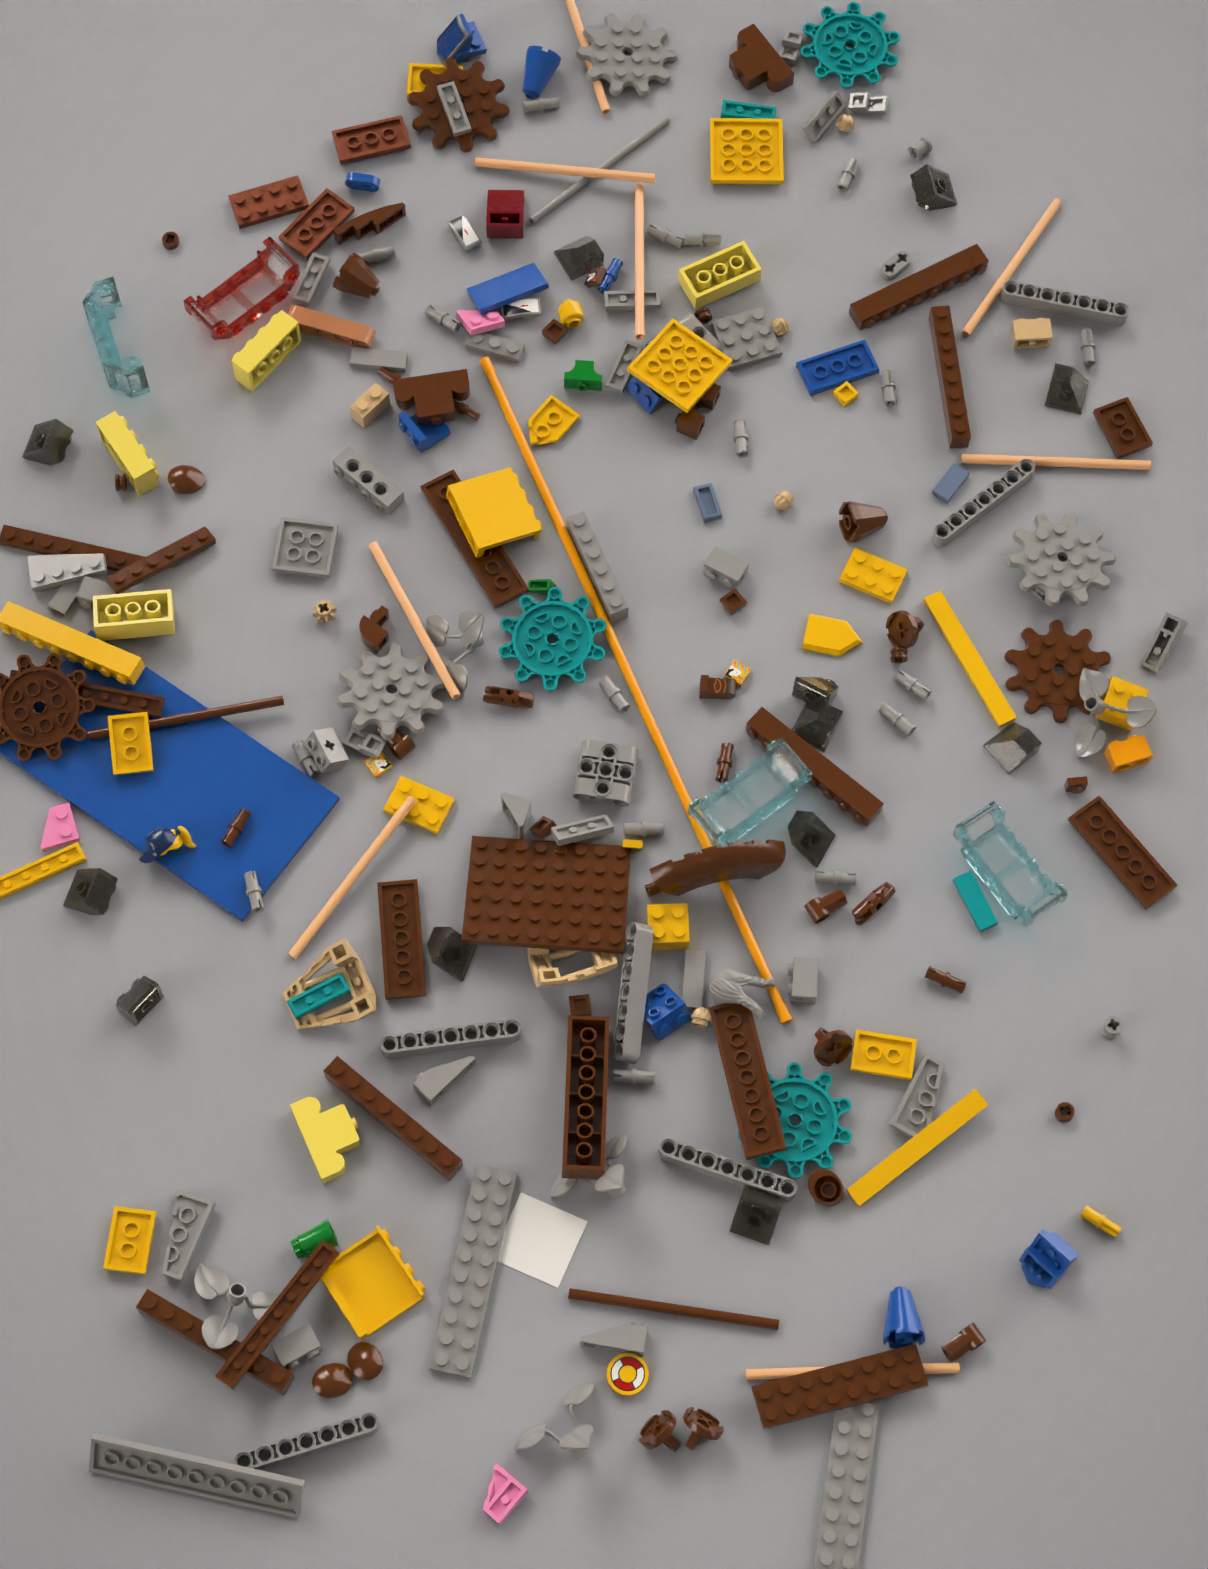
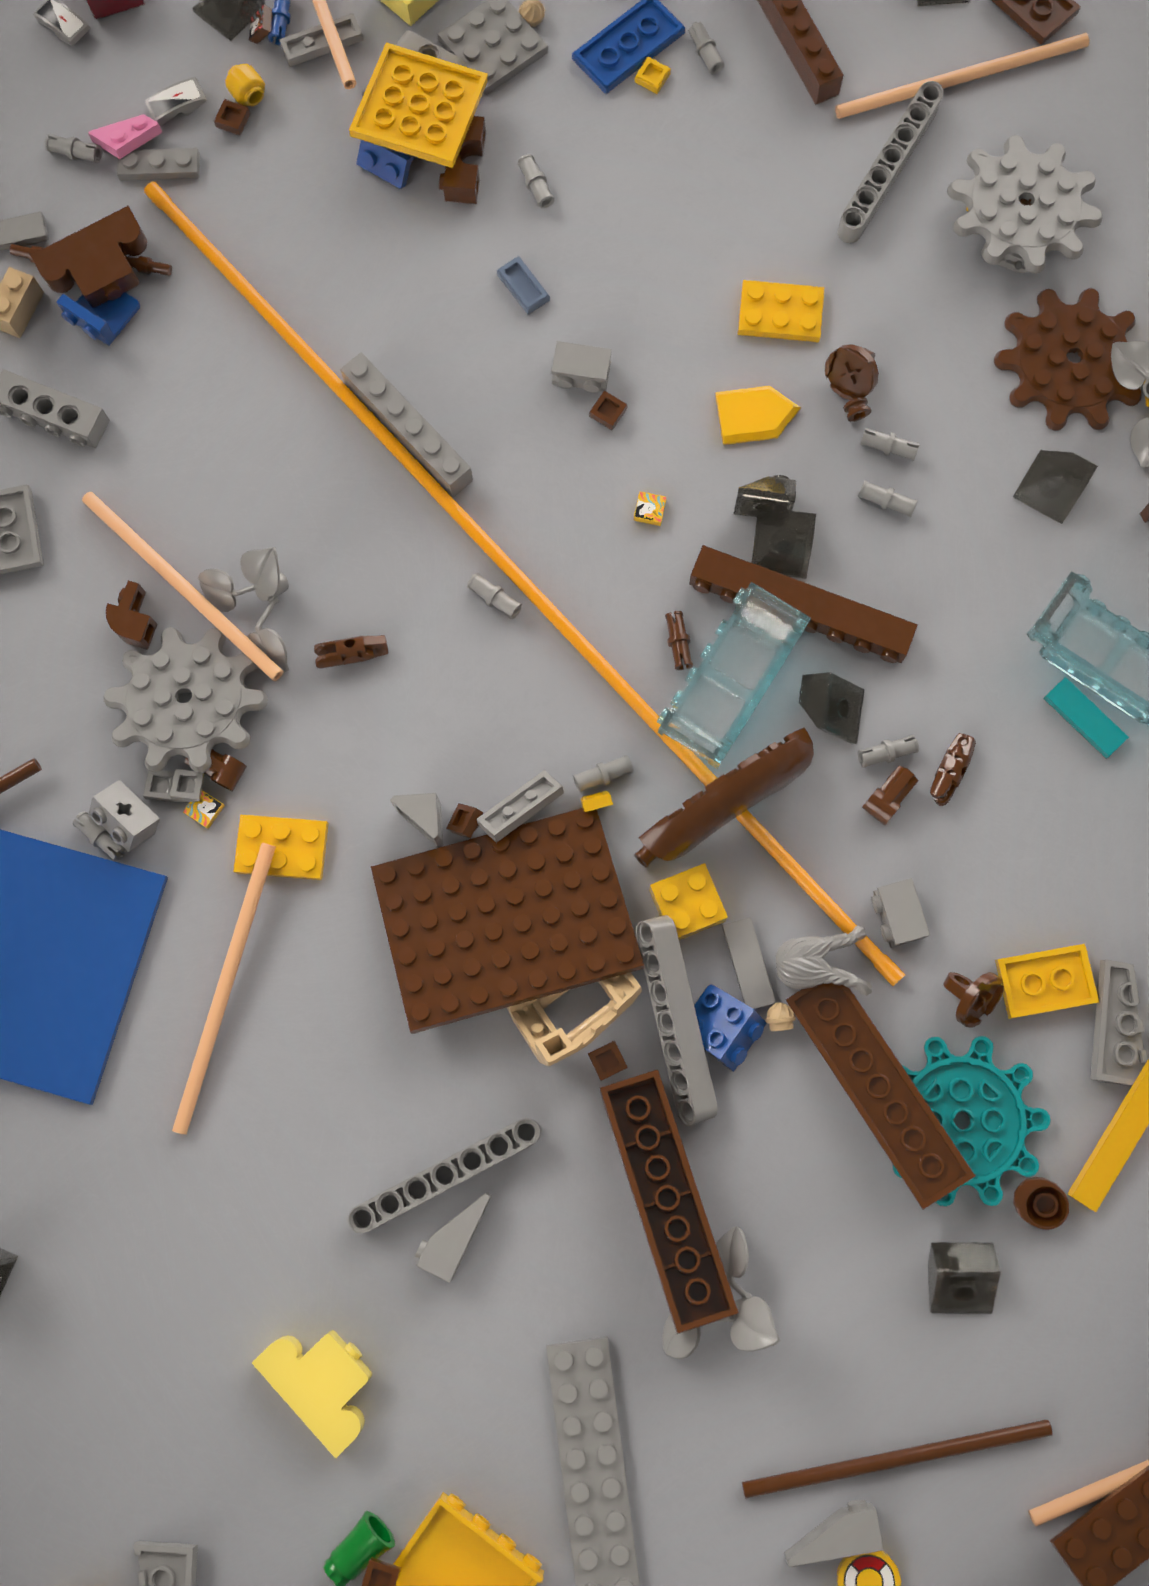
camera: 15 degrees left, 10 degrees up
(235, 828) = (33, 975): reddish brown pin -> none
(253, 891) = (91, 1060): light grey pin -> none
(318, 996) = (236, 1182): teal tile -> none
(324, 606) = (52, 616): tan gear -> none
(356, 977) = (254, 1117): tan windscreen -> none
(393, 1118) = (405, 1324): reddish brown brick -> none
(401, 939) = (325, 1053): reddish brown plate -> none
(449, 952) = (397, 1052): clear smoke slope -> none
(493, 510) = (235, 393): yellow panel -> none
(493, 569) = (224, 442): reddish brown plate -> none
(507, 288) = (147, 78): blue tile -> none
(540, 586) = (341, 477): green piece -> none
(540, 1239) = (674, 1422): white sticker -> none
(549, 619) = (376, 517): teal plate -> none
(551, 422) = (271, 243): yellow tile -> none
(583, 377) = (293, 166): green brick -> none
(594, 757) = (540, 688): light grey connector -> none
(619, 376) = (342, 147): light grey plate -> none
(634, 1076) = (719, 1137): light grey pin -> none
(703, 315) = (425, 28): reddish brown bush -> none
(717, 688) = (630, 539): reddish brown leg -> none
(719, 1162) = (912, 1231): light grey beam -> none
(783, 500) = (624, 247): tan plate -> none
(860, 520) = (737, 240): reddish brown cone -> none
(945, 979) = (1089, 843): reddish brown pin -> none
(950, 483) = (835, 150): sand blue tile -> none
(969, 659) = (951, 382): yellow tile -> none

